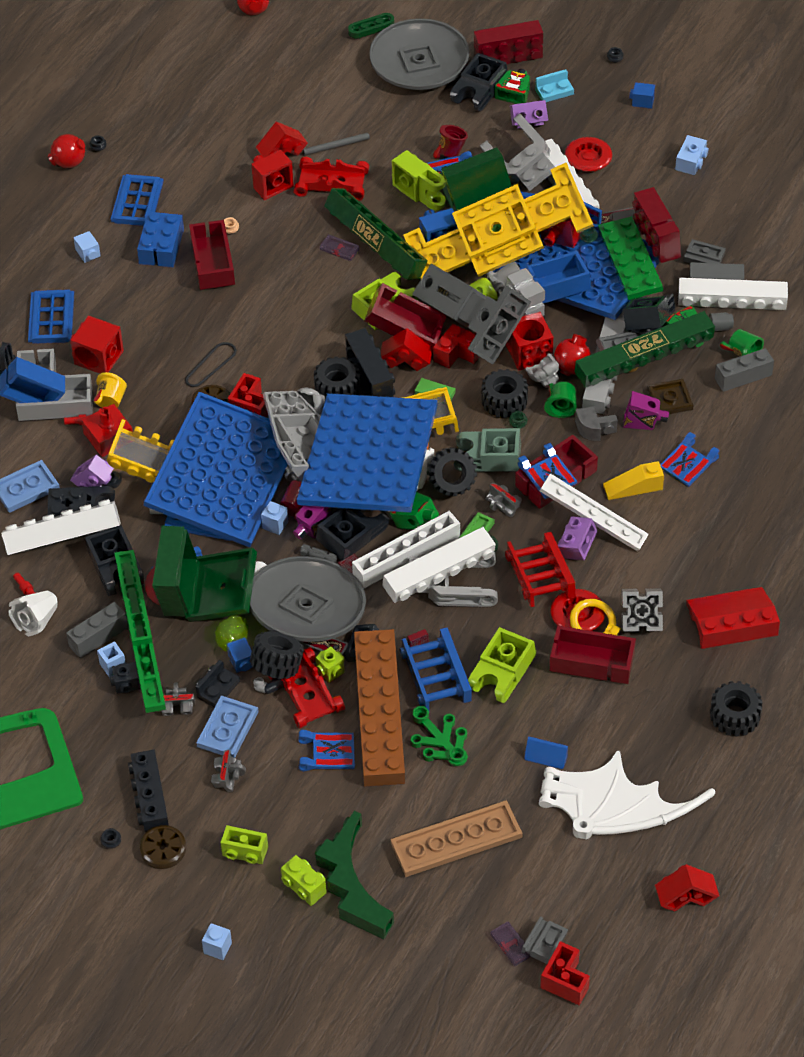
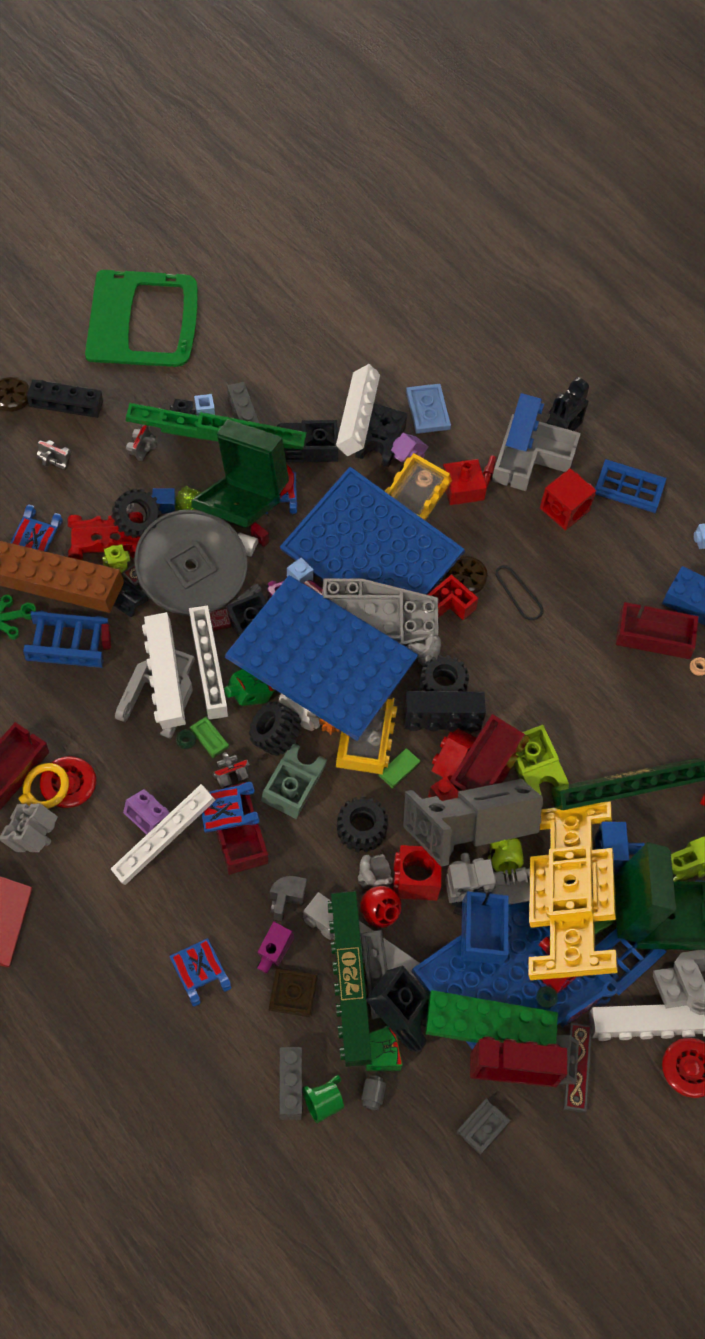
camera: 105 degrees right, 10 degrees up
(25, 586) = (317, 380): red bar -> none
(33, 611) = (283, 372): white cone -> none
(108, 834) = (38, 363): black plate -> none
(109, 390) = (507, 494): yellow hat -> none
(216, 683) = (144, 475): black bracket -> none
(227, 726) = (97, 469): medium blue plate -> none
(339, 247) = (634, 755): clear purple tile -> none
(503, 663) = (40, 691): lime brick -> none
(518, 420) = (327, 823): clear green plate -> none
(553, 558) = (114, 779): red fence -> none
(561, 400) = (331, 875): green hat -> none
(636, 481) = (194, 902): yellow slope -> none
(691, 155) = (650, 1188): light blue brick -> none
(716, 271) = (442, 1122): dark grey brick -> none
(732, 293) = (408, 1129): white brick -> none

